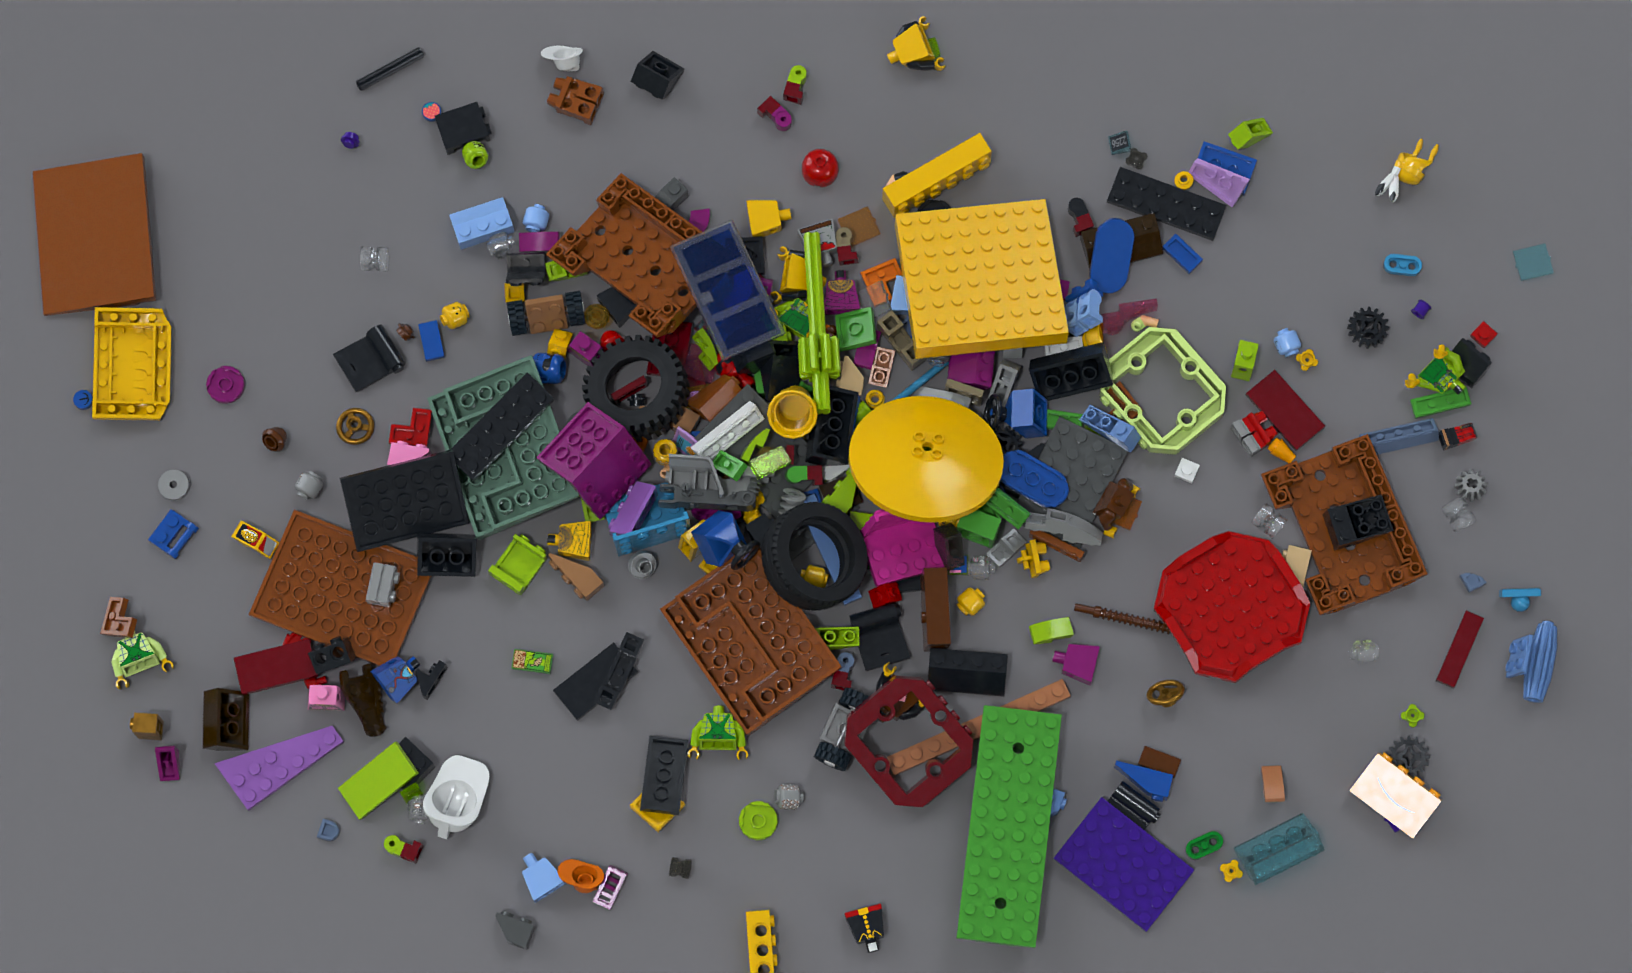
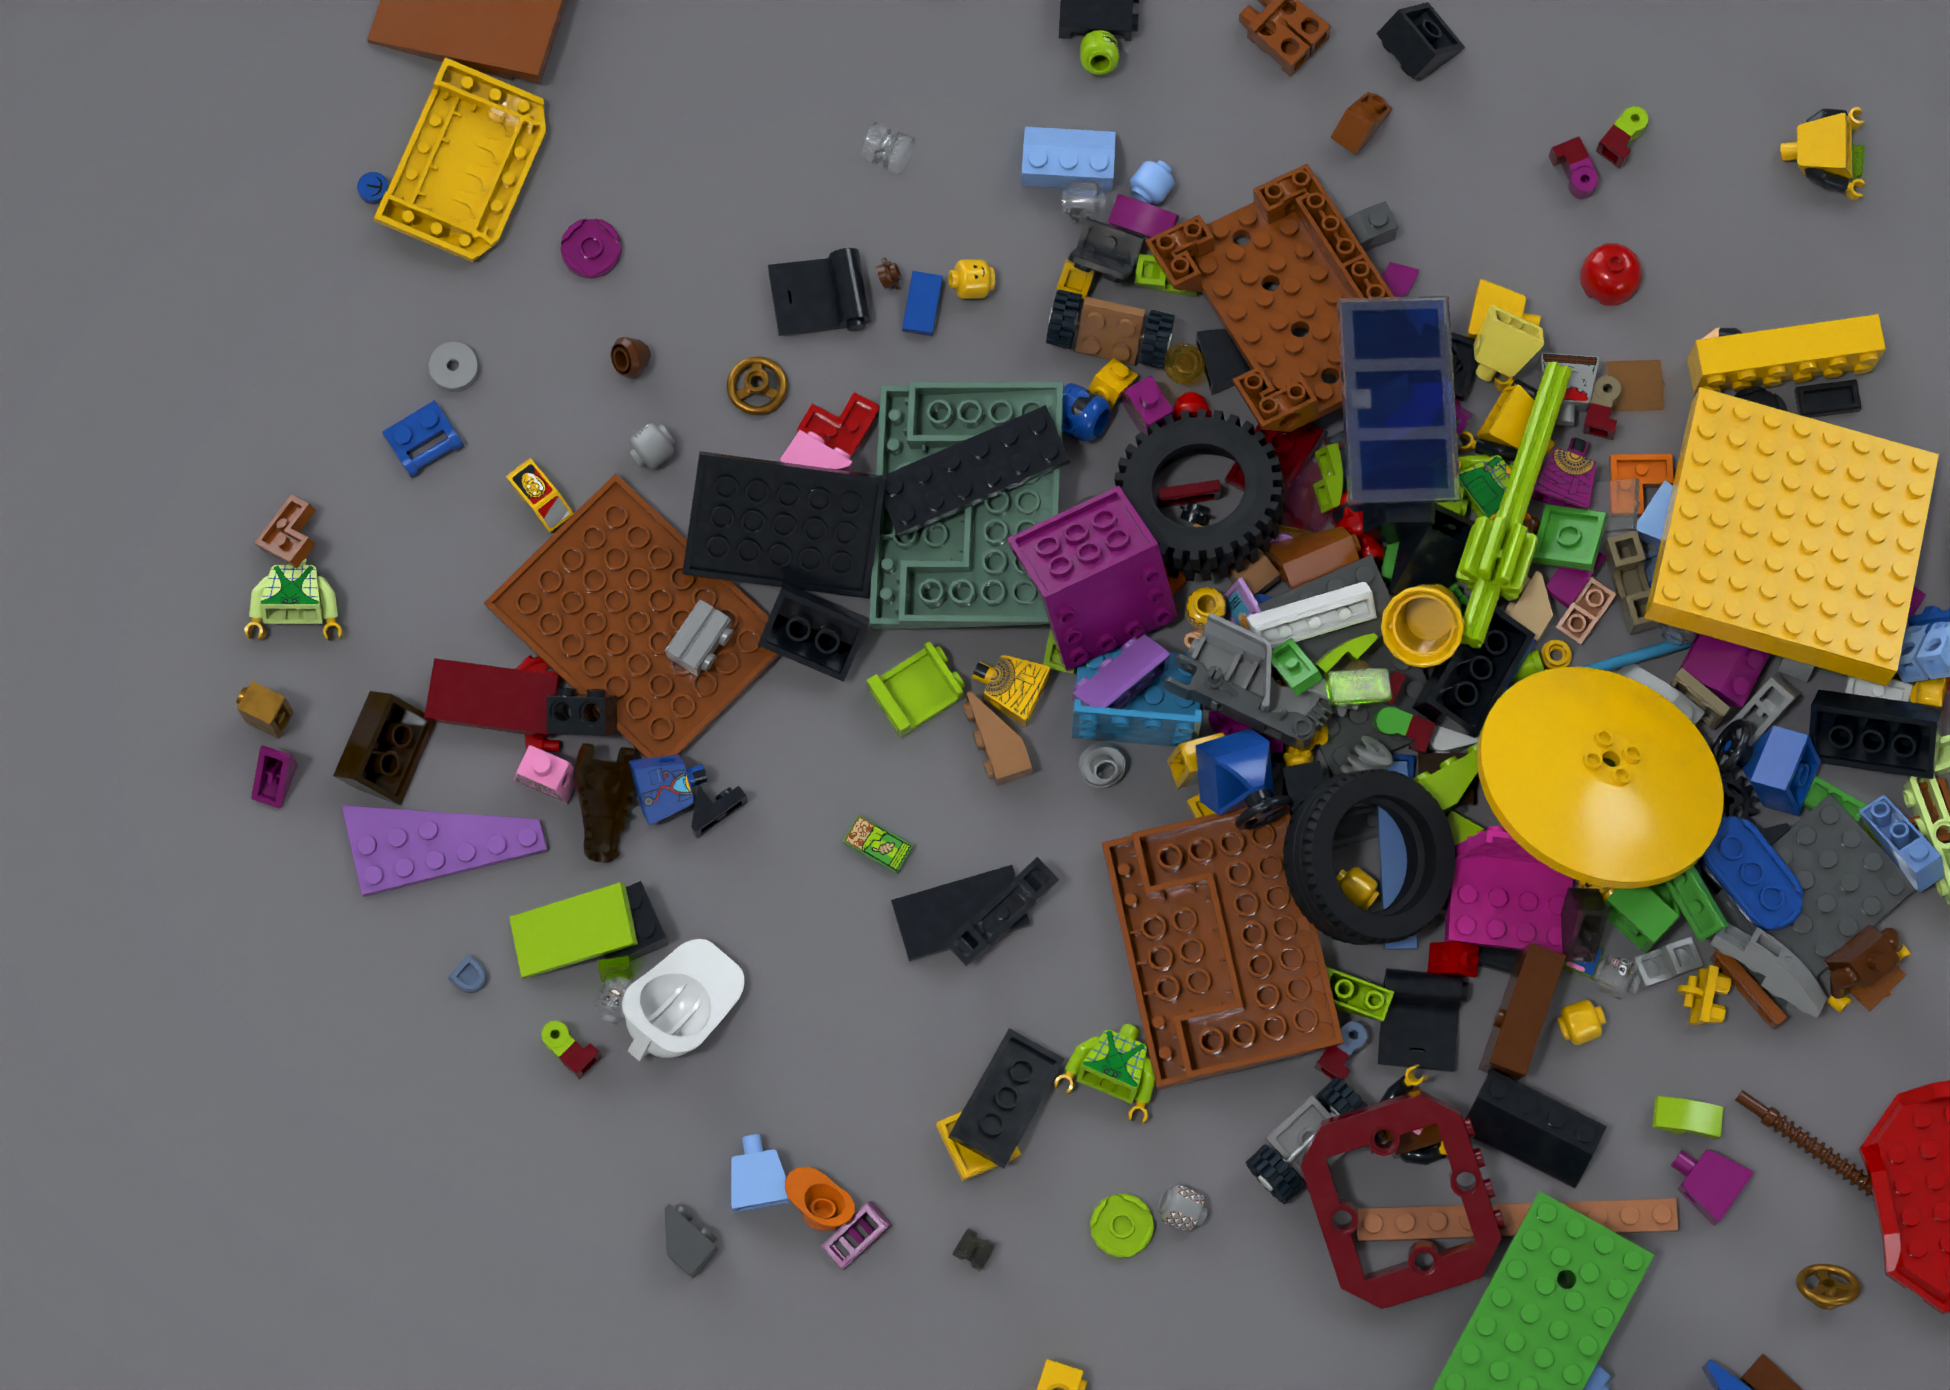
camera: 20 degrees right, 0 degrees up
(642, 136) = (1361, 122): none -> dark orange slope
(775, 232) = (1505, 344): none -> light yellow torso
(971, 191) = (1828, 399): none -> black tile

